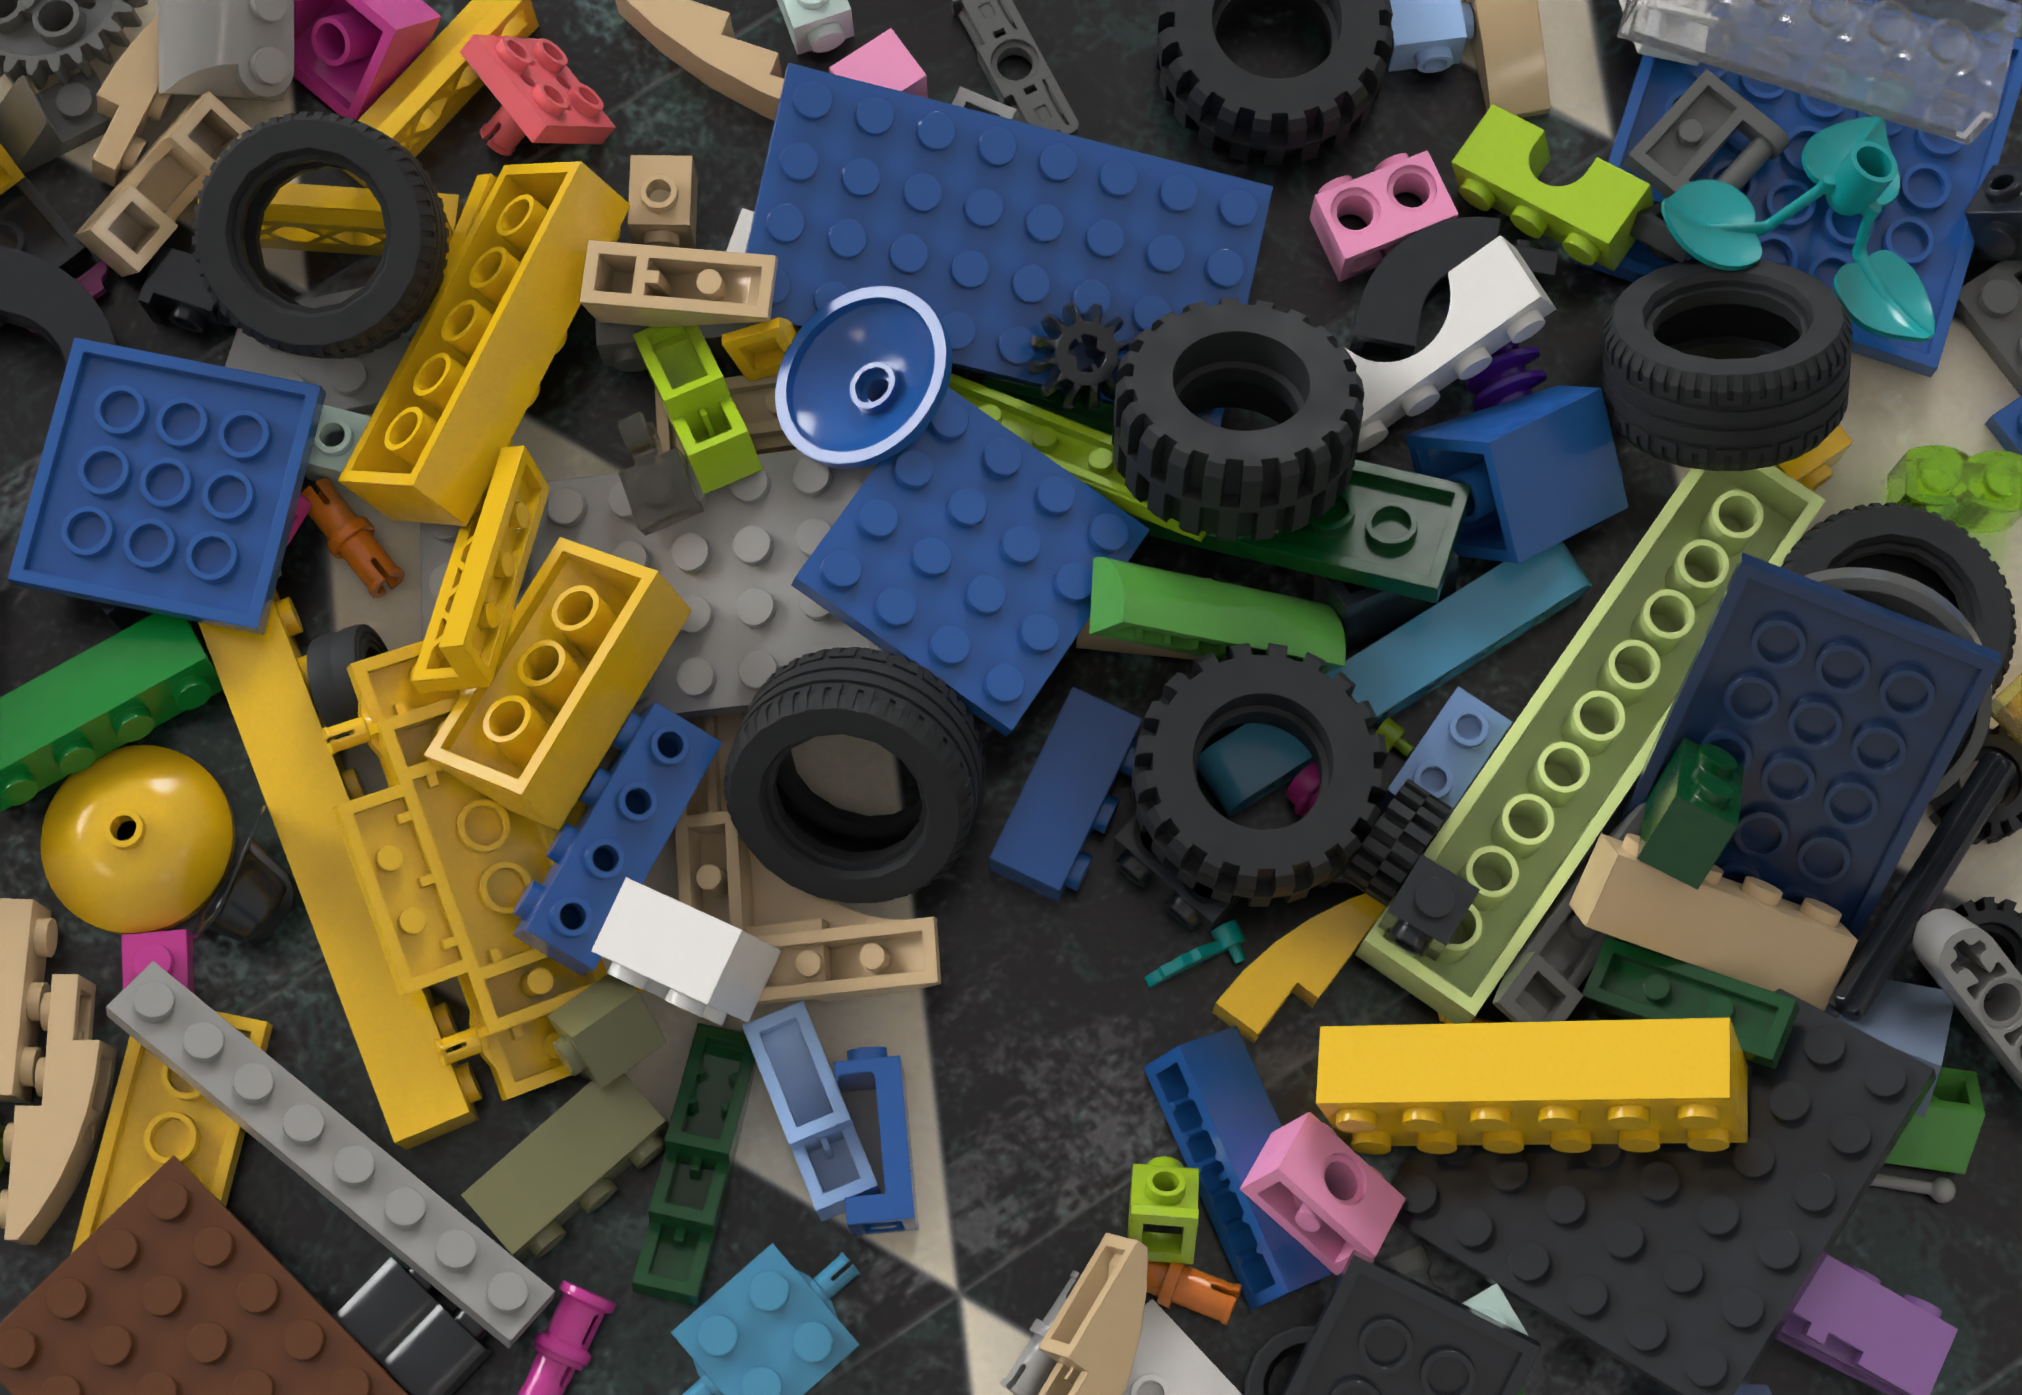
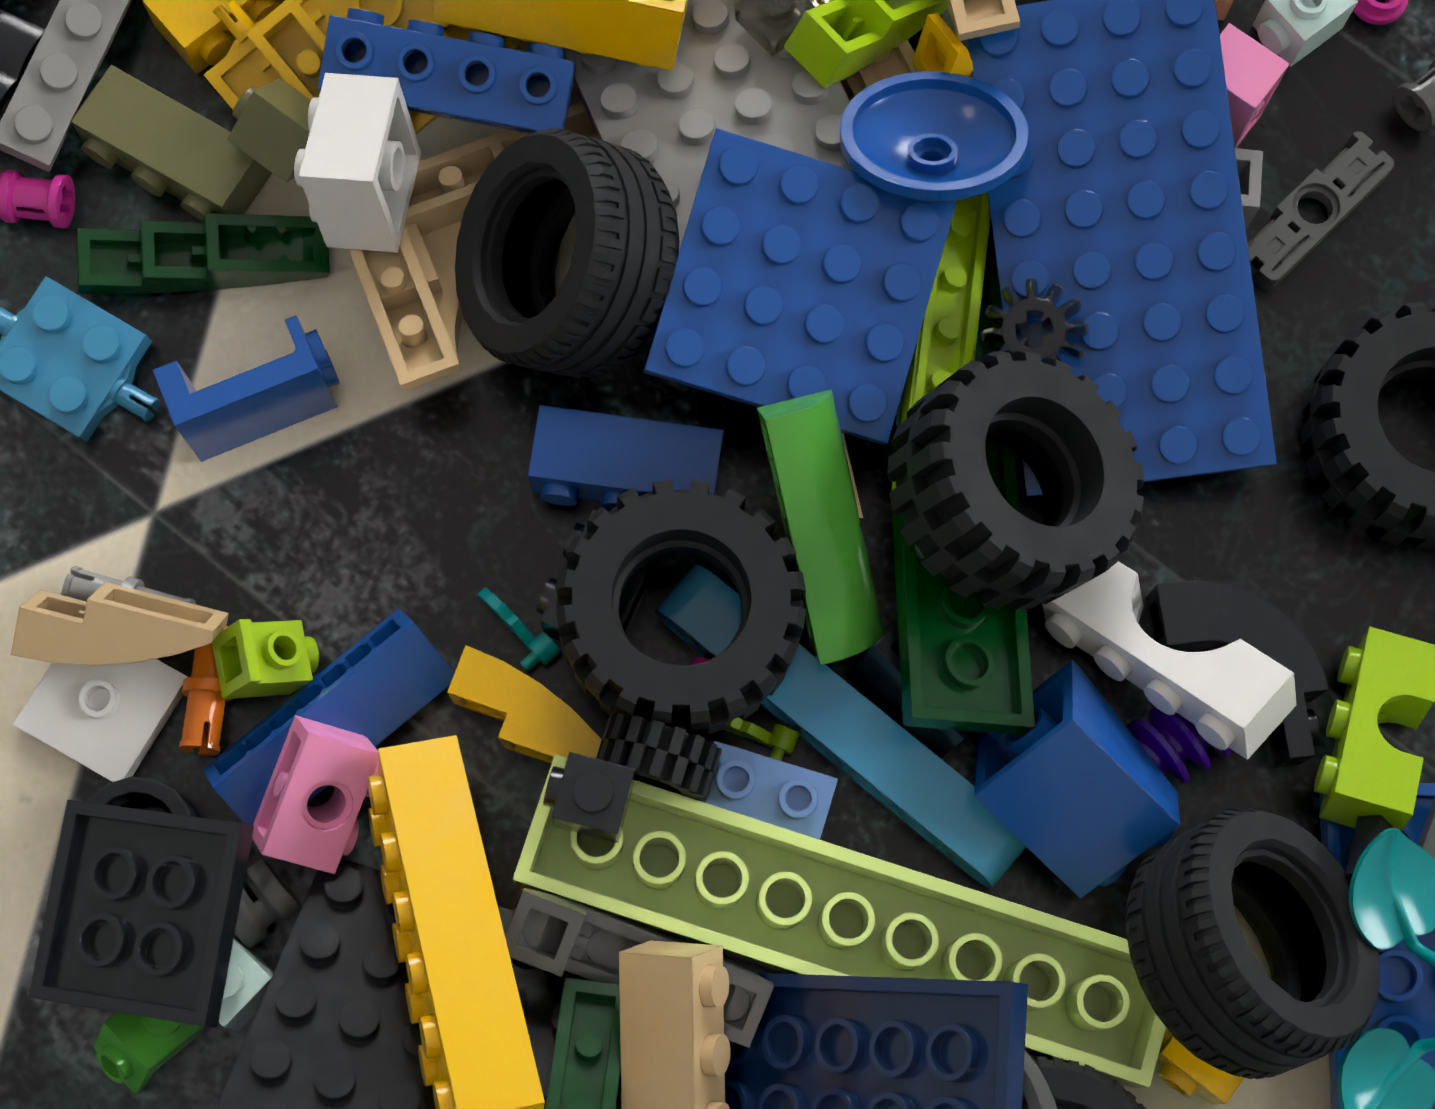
camera: 70 degrees right, 0 degrees up
(810, 1109) = (257, 333): light blue slope -> none
(1374, 201) = (1308, 570): bright pink brick -> none
(1691, 812) = (760, 1022): dark green brick -> none

